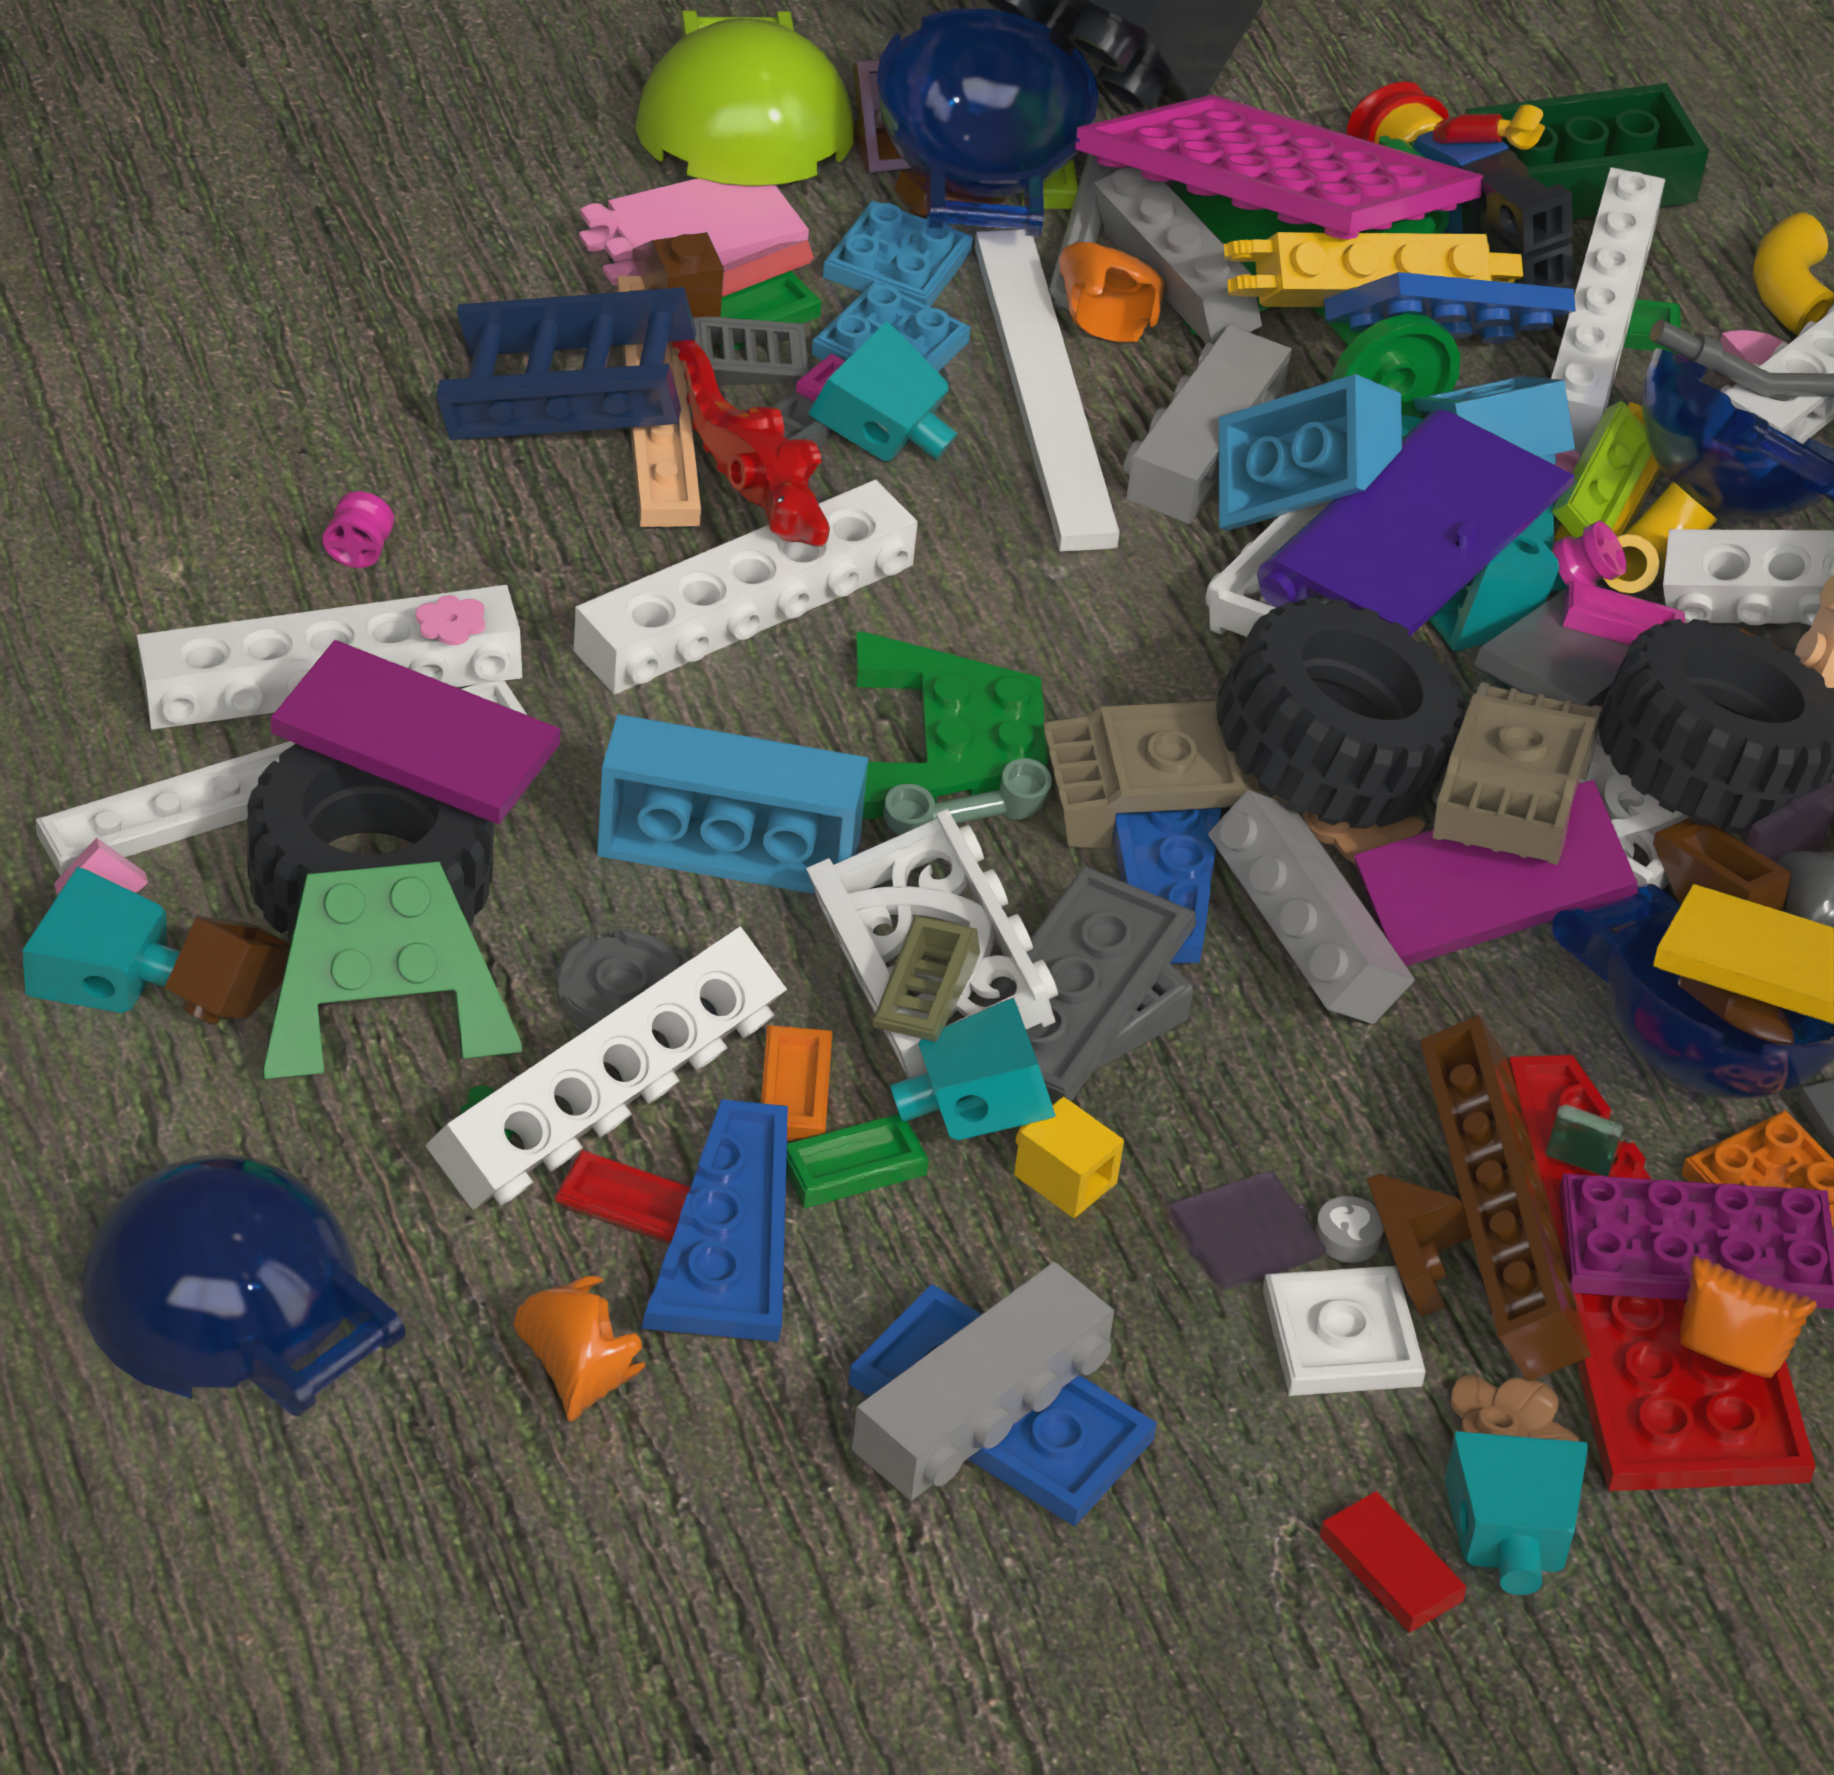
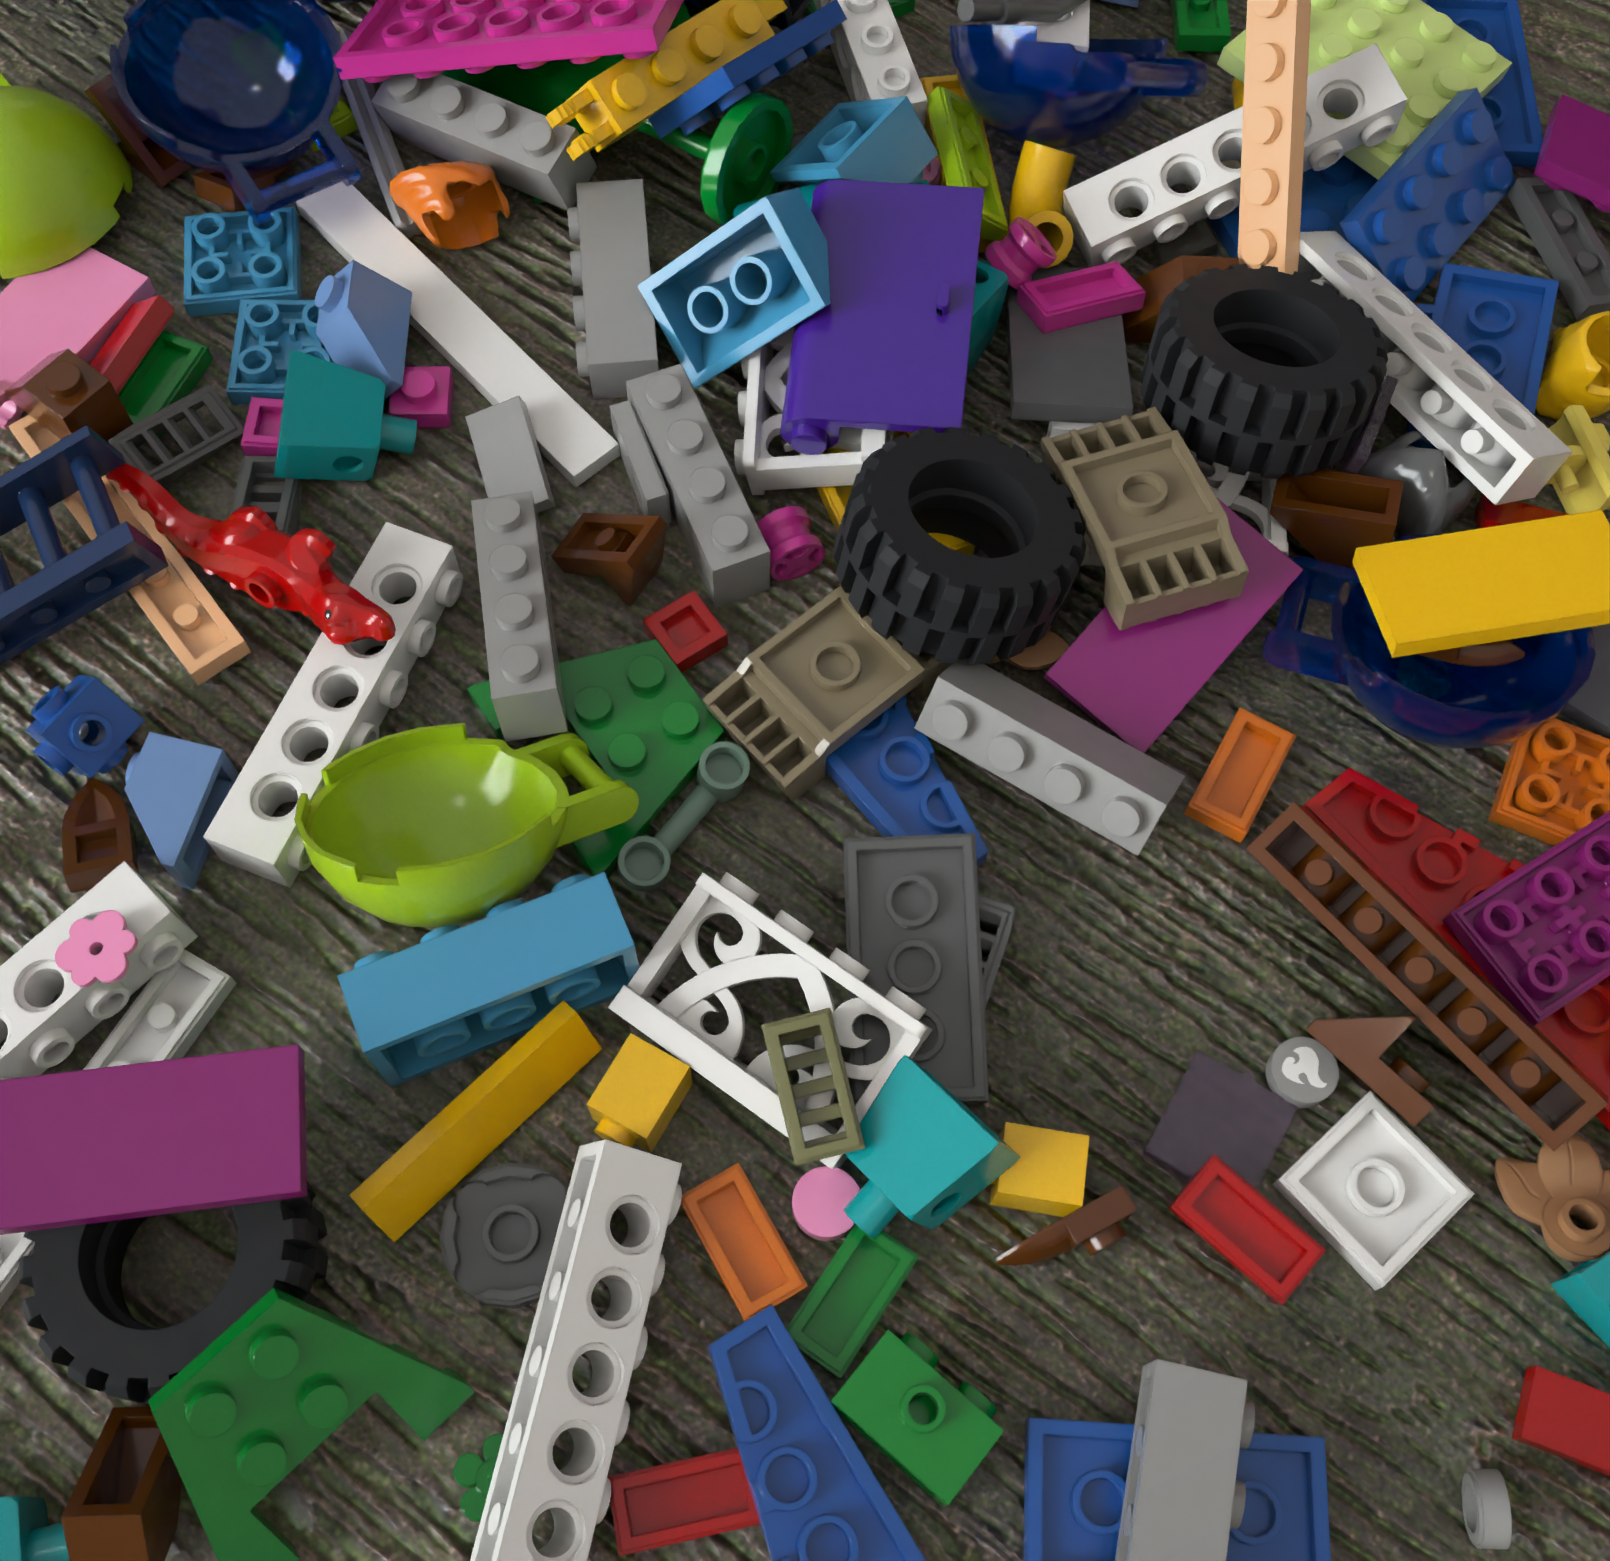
camera: 30 degrees left, 20 degrees up
(493, 568) = (96, 836): none -> reddish brown plate
(532, 499) = (103, 722): none -> blue brick
(567, 574) = (176, 795): none -> medium blue slope
(651, 894) = (476, 1122): none -> yellow tile
(777, 685) = (451, 823): none -> lime windscreen
(795, 940) = (639, 1094): none -> yellow brick
(845, 1239) = (918, 1416): none -> green brick
(871, 1091) = (820, 1203): none -> bright pink tile
(935, 595) = (518, 617): none -> light grey brick
(967, 339) = (365, 323): none -> medium blue slope
(979, 422) = (425, 396): none -> dark pink plate
(1015, 499) = (509, 452): none -> light grey tile
(1059, 602) = (617, 547): none -> reddish brown slope
(1070, 688) = (686, 631): none -> red tile
(1072, 1204) = (1092, 1225): none -> reddish brown plate
(1124, 555) = (640, 461): none -> light grey tile
(1162, 590) = (701, 487): none -> light grey brick
(1205, 664) = (790, 543): none -> dark pink wheel
(1210, 1289) = (1246, 1229): none -> red tile
(1252, 1539) = (1486, 1509): none -> light grey tile
(1504, 1007) = (1240, 775): none -> orange tile
(1585, 1140) = (1435, 856): clear green slope -> none

